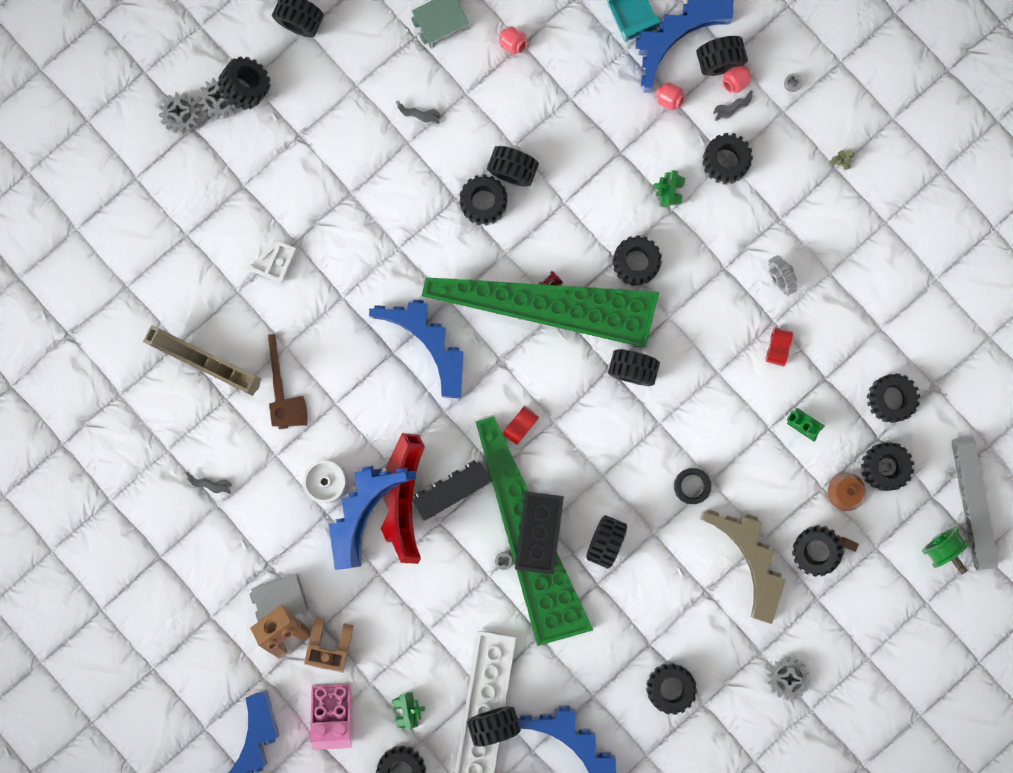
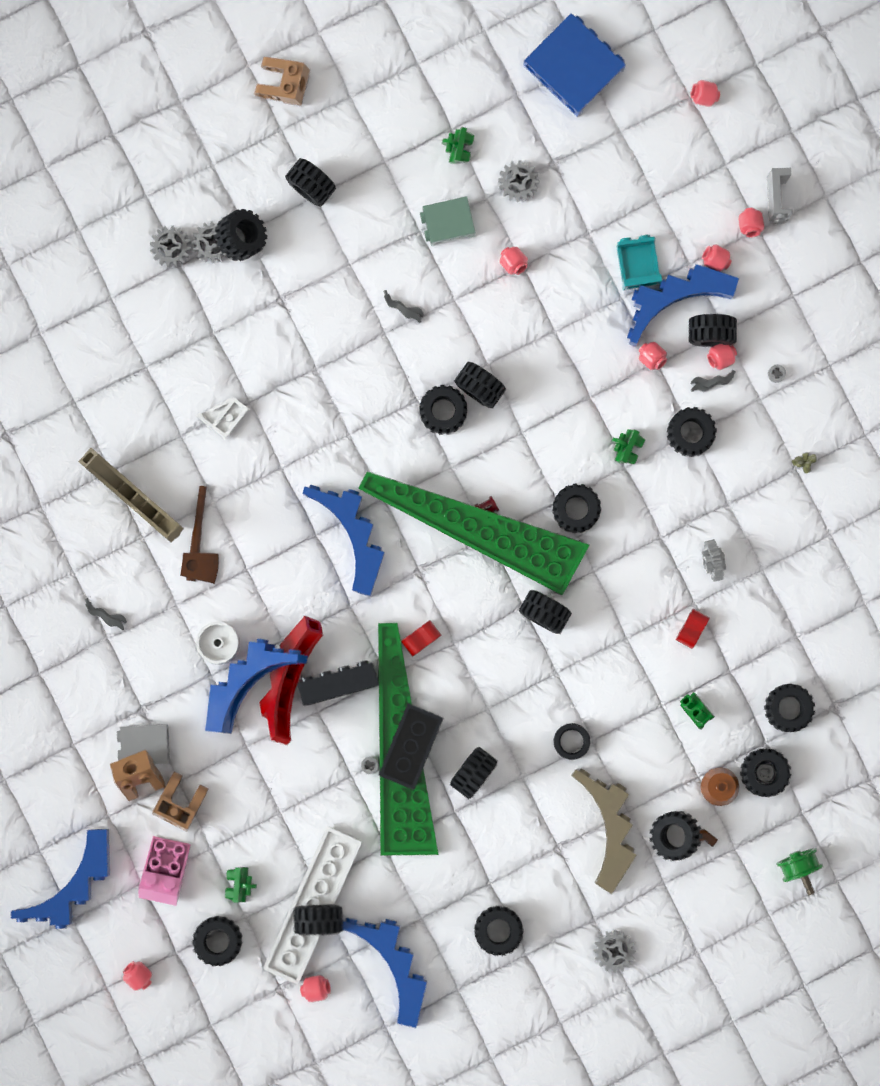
camera: 10 degrees right, 0 degrees up
(974, 503) = (841, 831): light grey beam -> none

